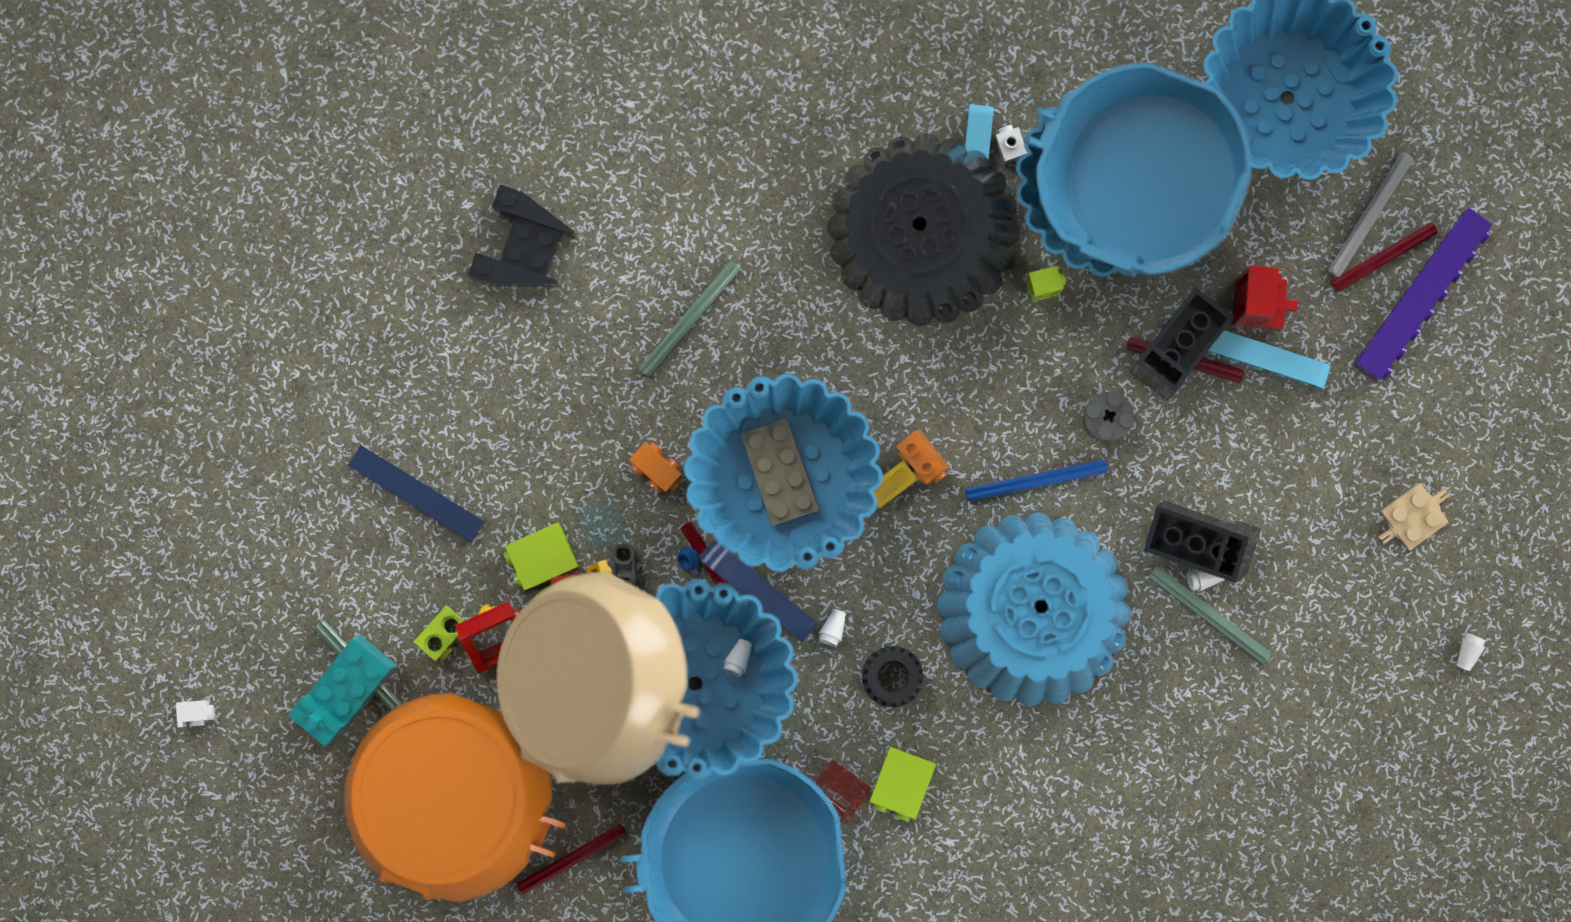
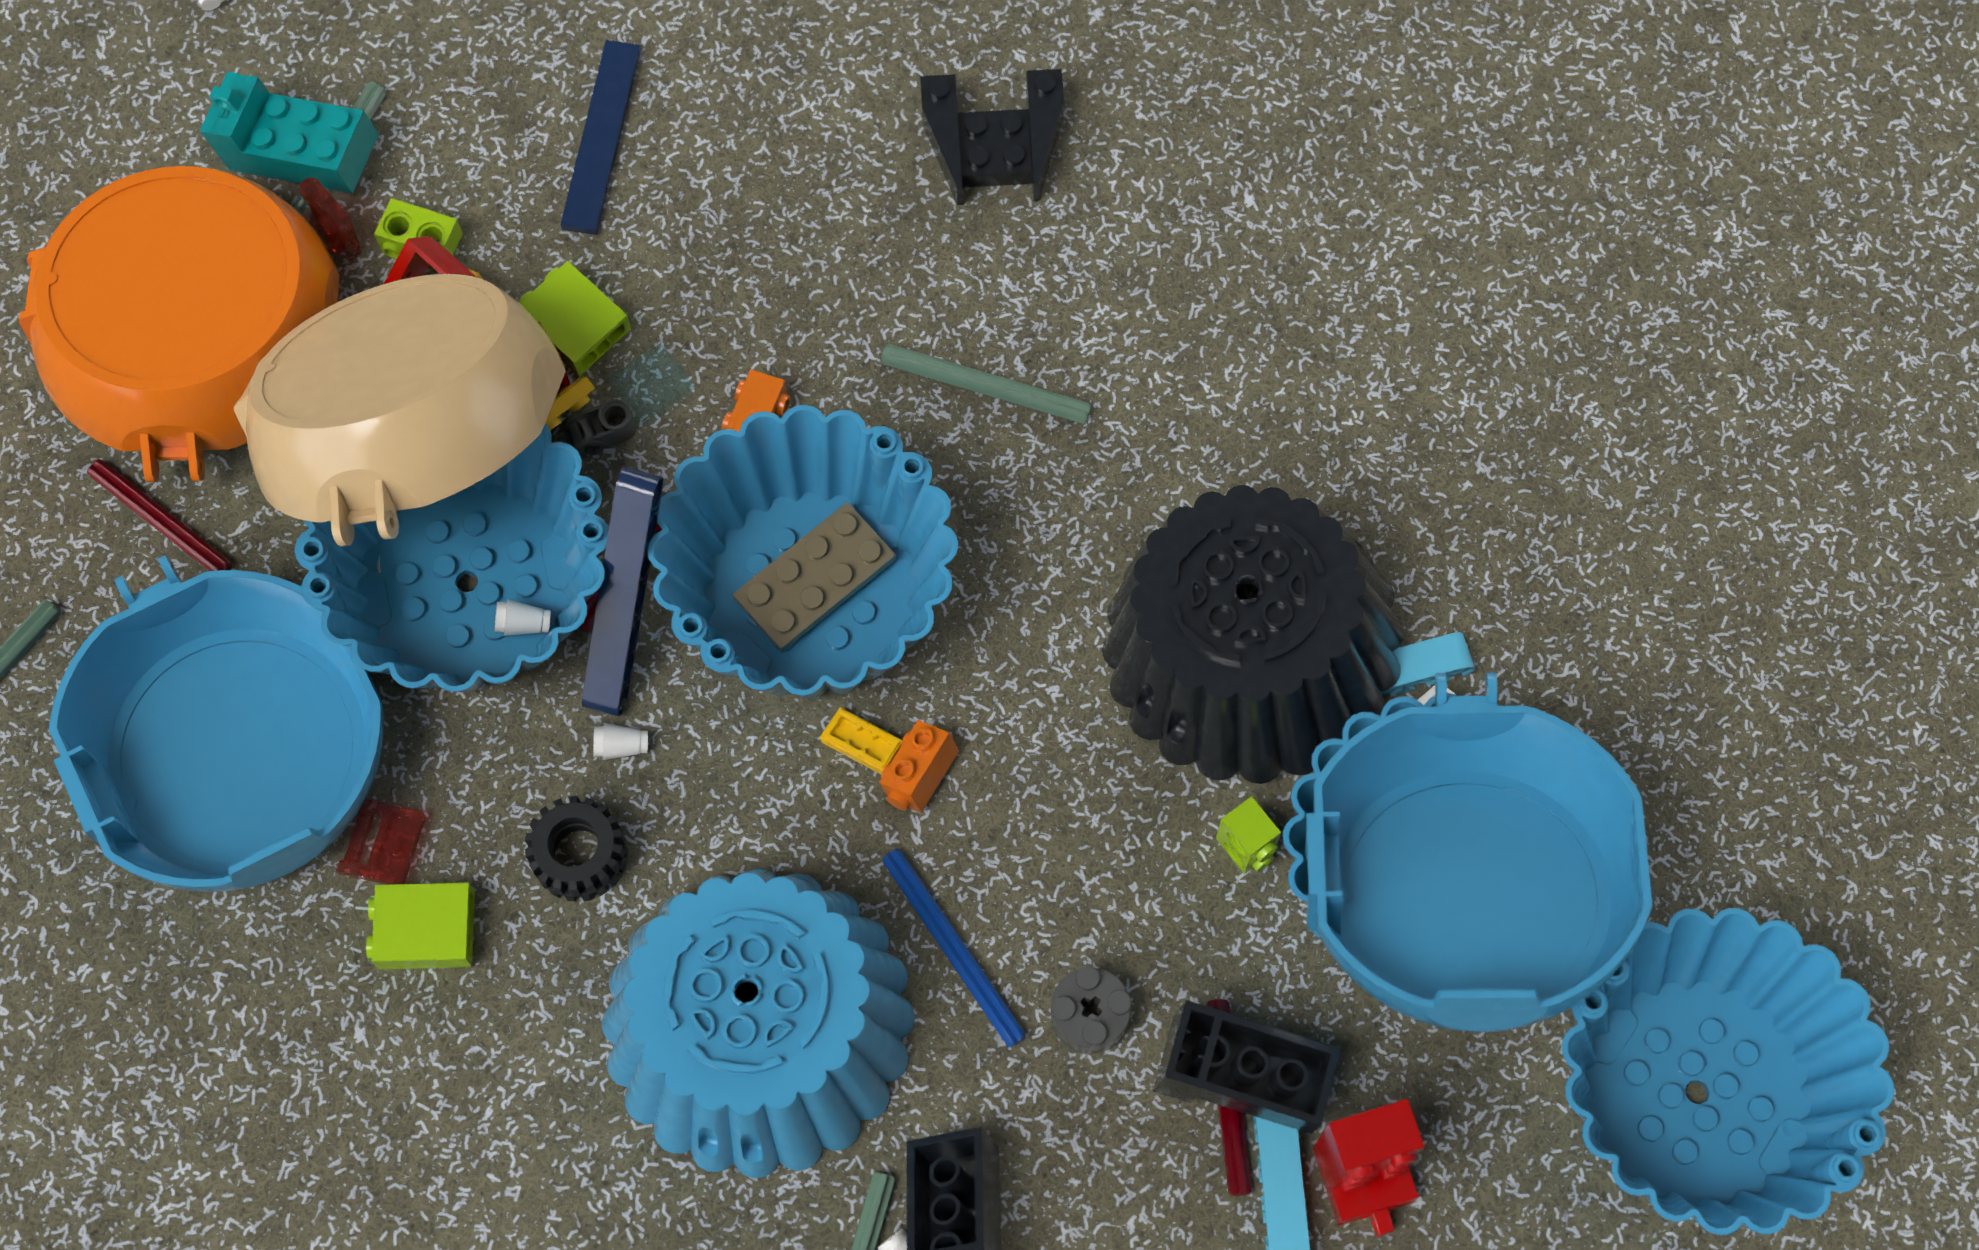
camera: 70 degrees right, 15 degrees down
(419, 683) = (331, 218): none -> clear red plate

